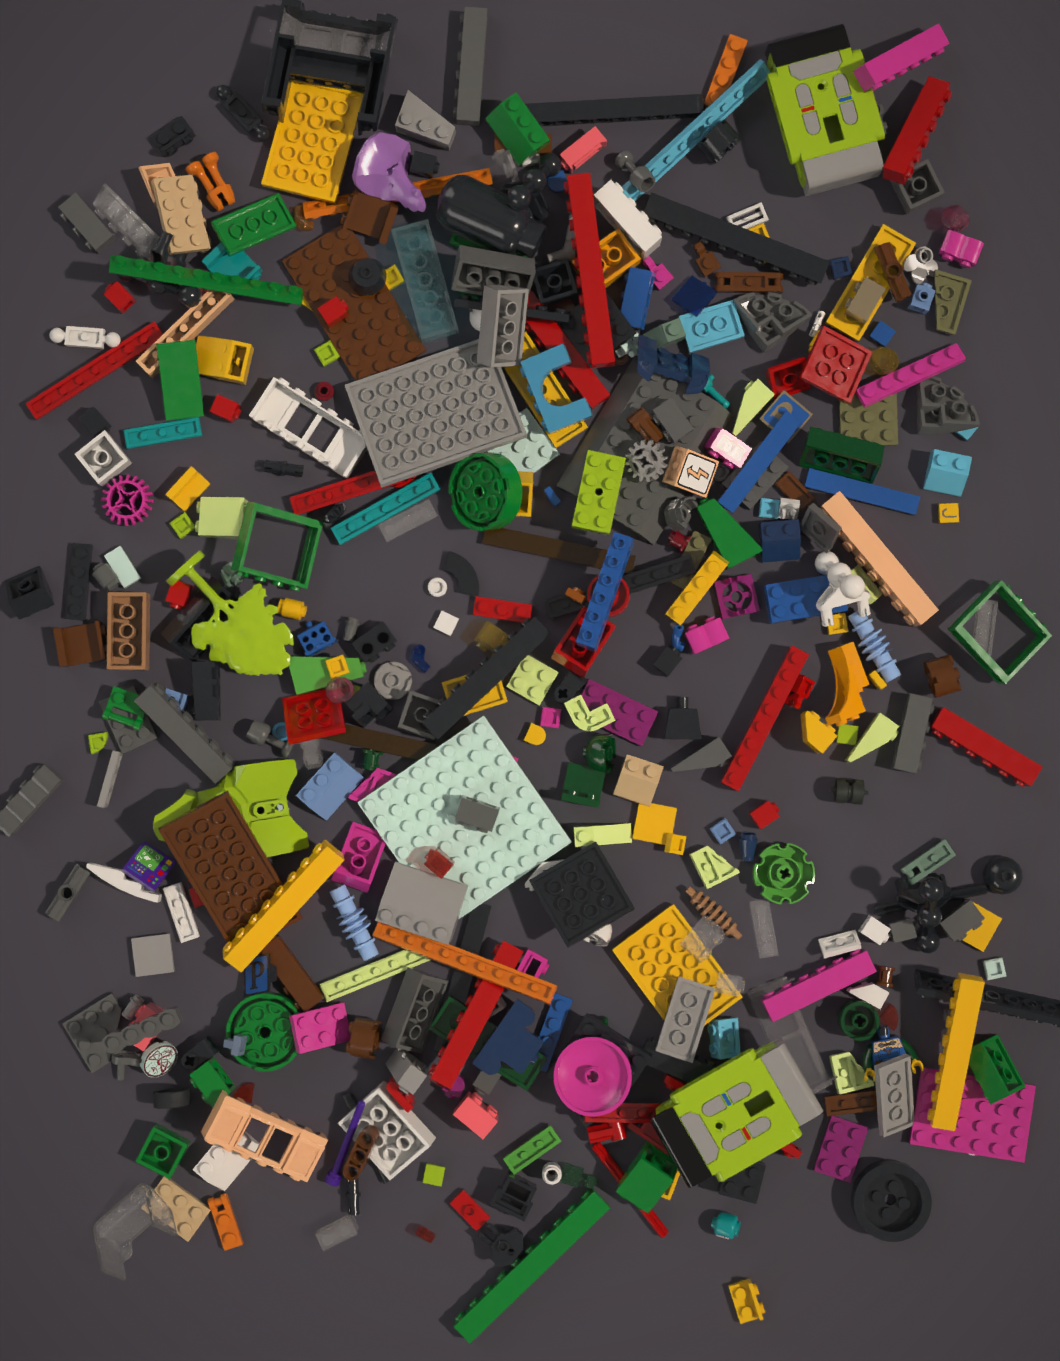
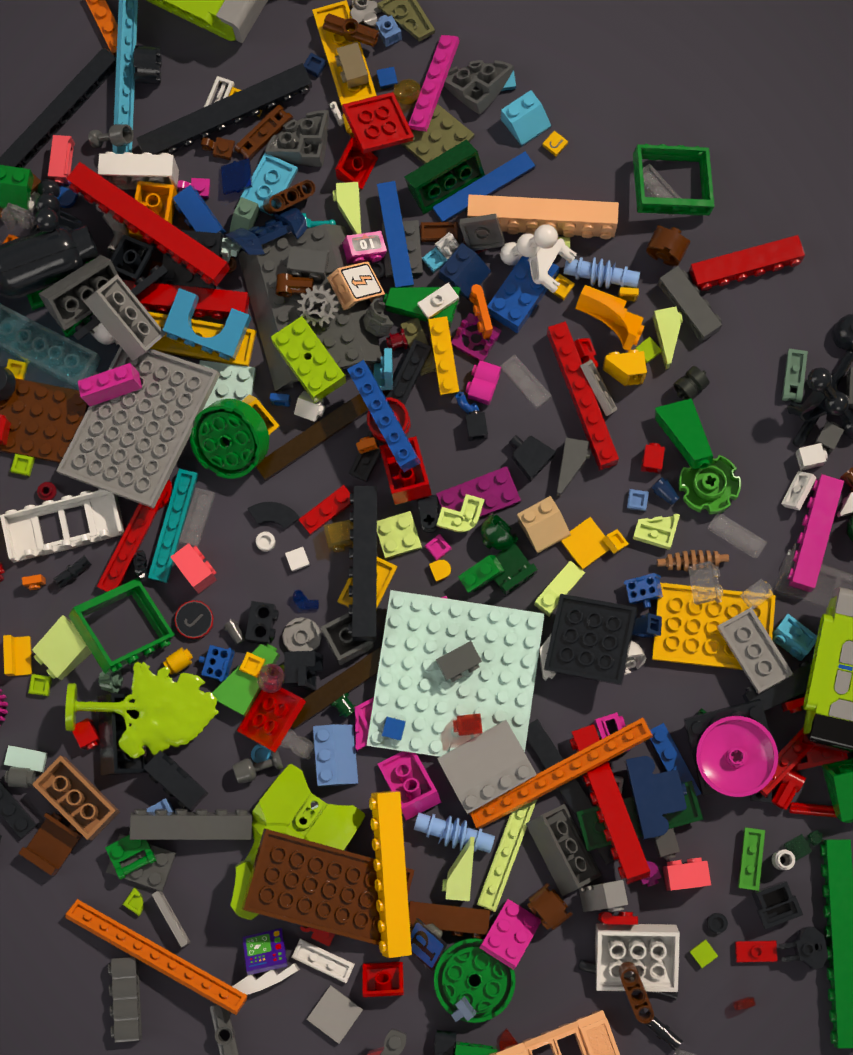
camera: 40 degrees left, 10 degrees down
(74, 794) = (156, 957): none -> orange plate
(206, 967) = (383, 979): none -> red slope
(250, 449) = (34, 582): none -> orange plate
(328, 954) = (459, 875): none -> yellowish green slope
(332, 590) = (194, 619): none -> black tile
(334, 1177) = (635, 1034): dark purple piece -> none
(367, 556) = (191, 564): none -> coral brick
(386, 811) = (393, 728): none -> blue tile
(443, 362) = (109, 384): none -> dark pink brick
(464, 1165) = (717, 923): none -> black tile
(558, 769) = (481, 573): none -> green brick
(563, 524) = (308, 408): none -> white brick
(632, 925) = (648, 626): none -> dark blue brick
(644, 554) = (384, 371): none -> medium azure bracket
(658, 892) = (642, 584): none -> blue piece
(708, 347) = (281, 197): none -> reddish brown beam
(736, 544) = (438, 301): none -> white plate
(736, 665) = (525, 381): none -> clear plate
(759, 582) = (481, 311): none -> orange plate
(778, 408) = (370, 189): piece -> none
(781, 725) = (598, 387): none -> light grey tile
(806, 821) = (686, 432): none -> green slope

